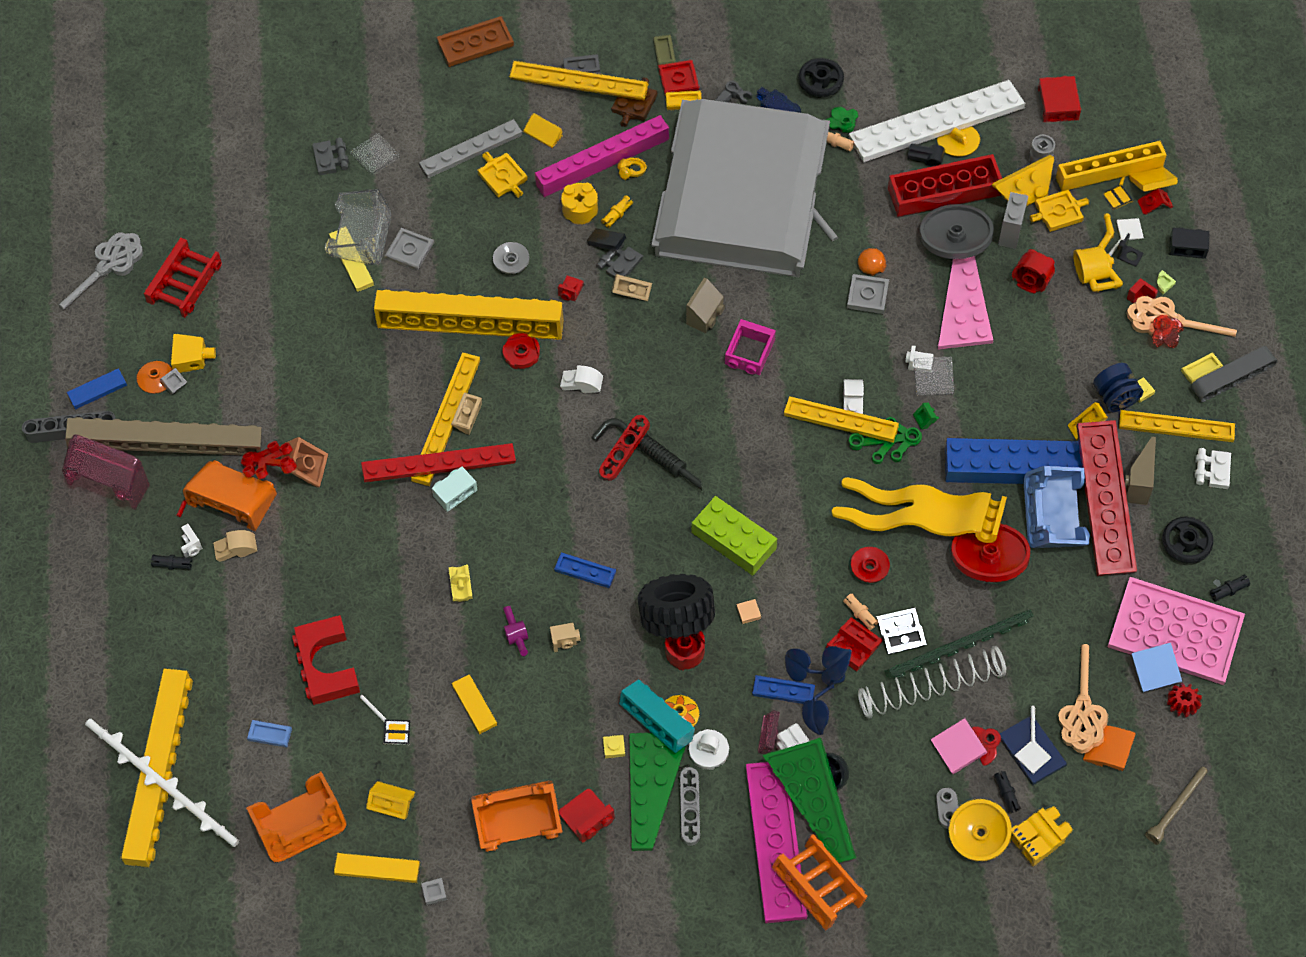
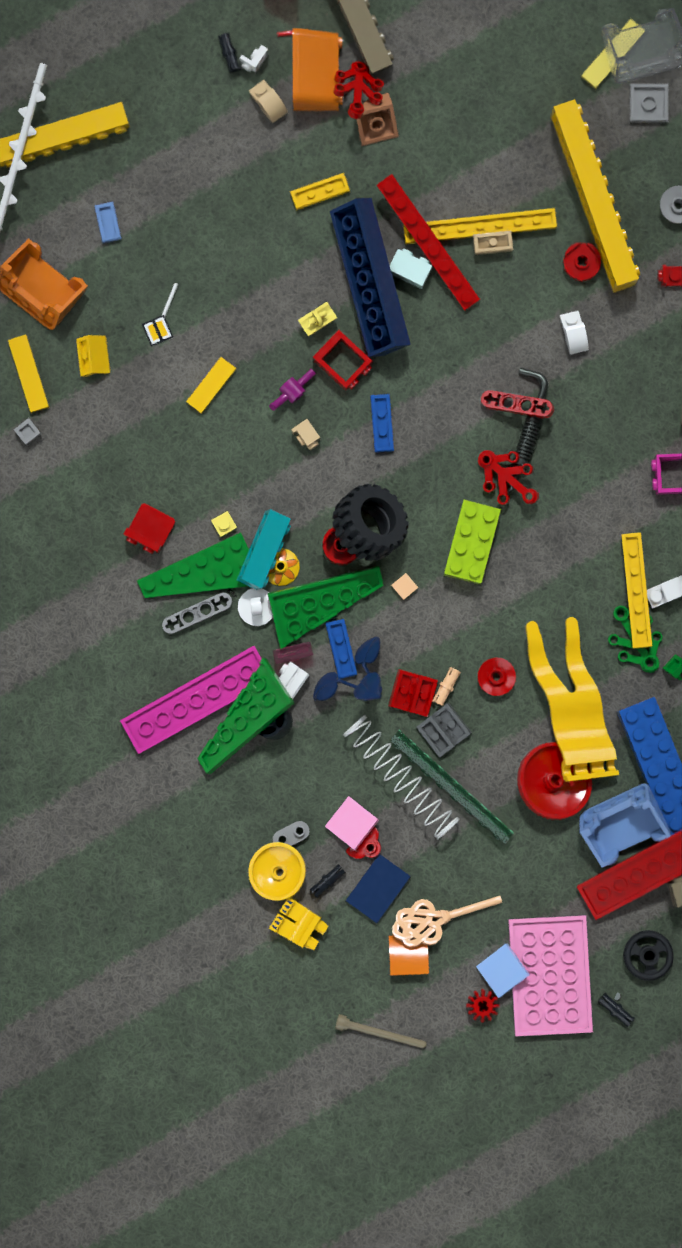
camera: 65 degrees right, 25 degrees up
(310, 639) = (205, 213): red arch -> none
(342, 537) = (320, 191): none -> yellow tile
(445, 520) = (370, 277): none -> dark blue brick
(515, 592) = (328, 347): none -> red window
(516, 814) = (124, 467): orange windscreen -> none
(684, 483) = (505, 476): none -> red plant
(729, 693) = (312, 604): none -> green wing
(807, 894) = (153, 753): orange fence -> none
(1032, 755) = (372, 890): white piece -> none

